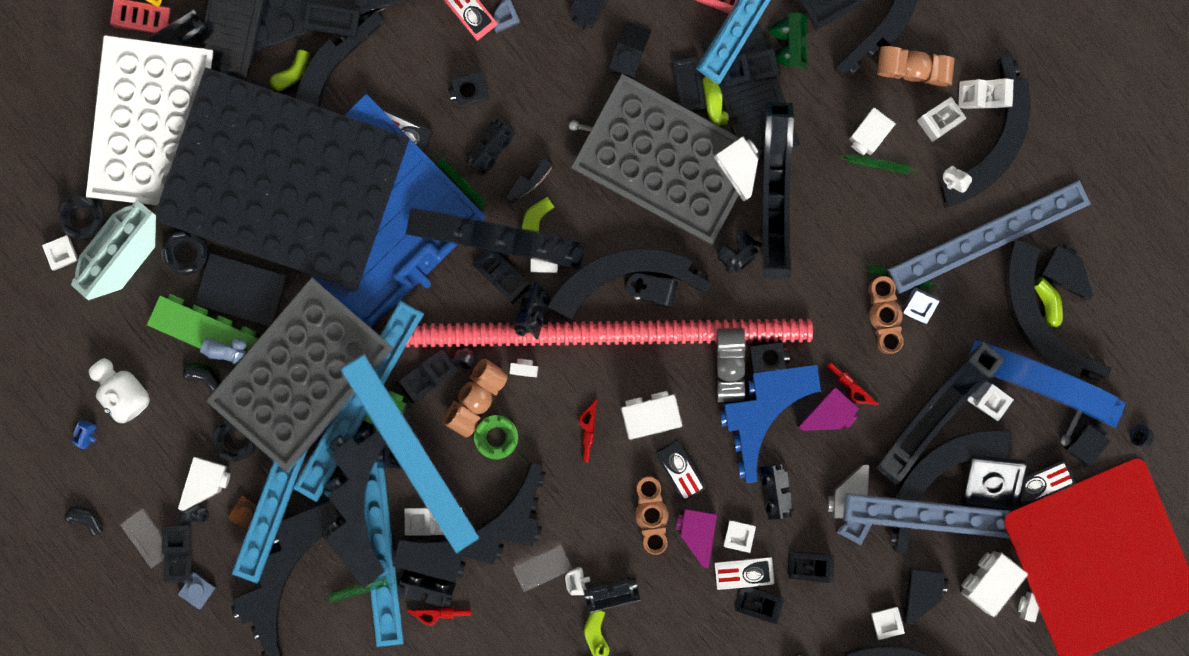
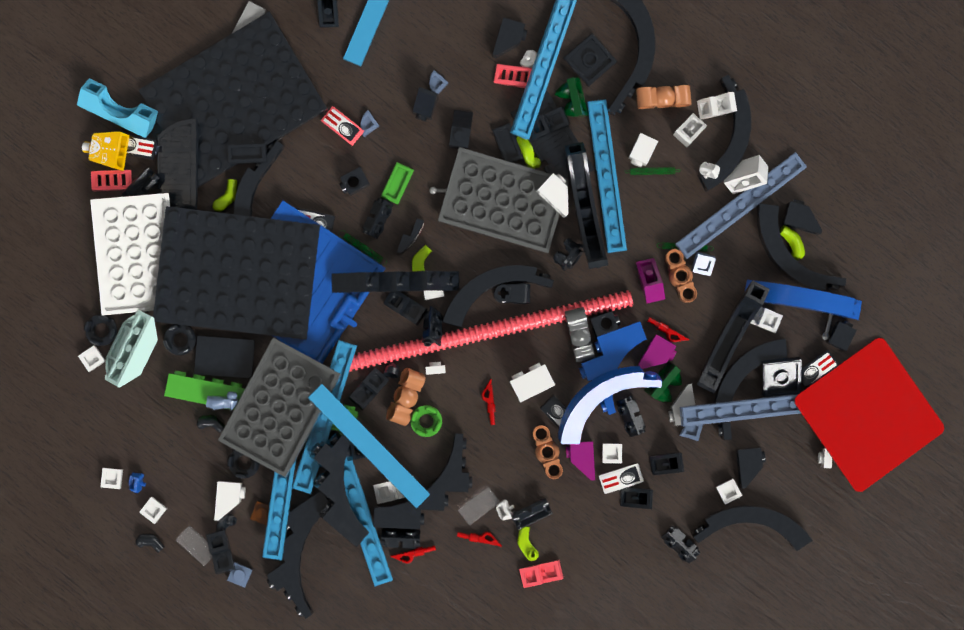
camera: 15 degrees left, 0 degrees up
(51, 421) = (111, 478): none -> white plate
(98, 477) = (153, 510): none -> white plate
(119, 392) = (154, 447): white piece -> none
(354, 587) = (352, 550): green piece -> none
(527, 105) = (397, 183): none -> bright green tile
(529, 611) = (480, 538): none -> red hand
(735, 448) = (595, 392): none -> arch
(814, 157) = (606, 176): none -> dark azure tile
(822, 460) = (670, 375): none -> dark green tile
(843, 312) = (650, 280): none -> magenta slope
(993, 582) = (796, 447): white brick -> none
(1007, 197) = (747, 175): none -> white slope
(1135, 434) = (873, 321): black hinge -> none

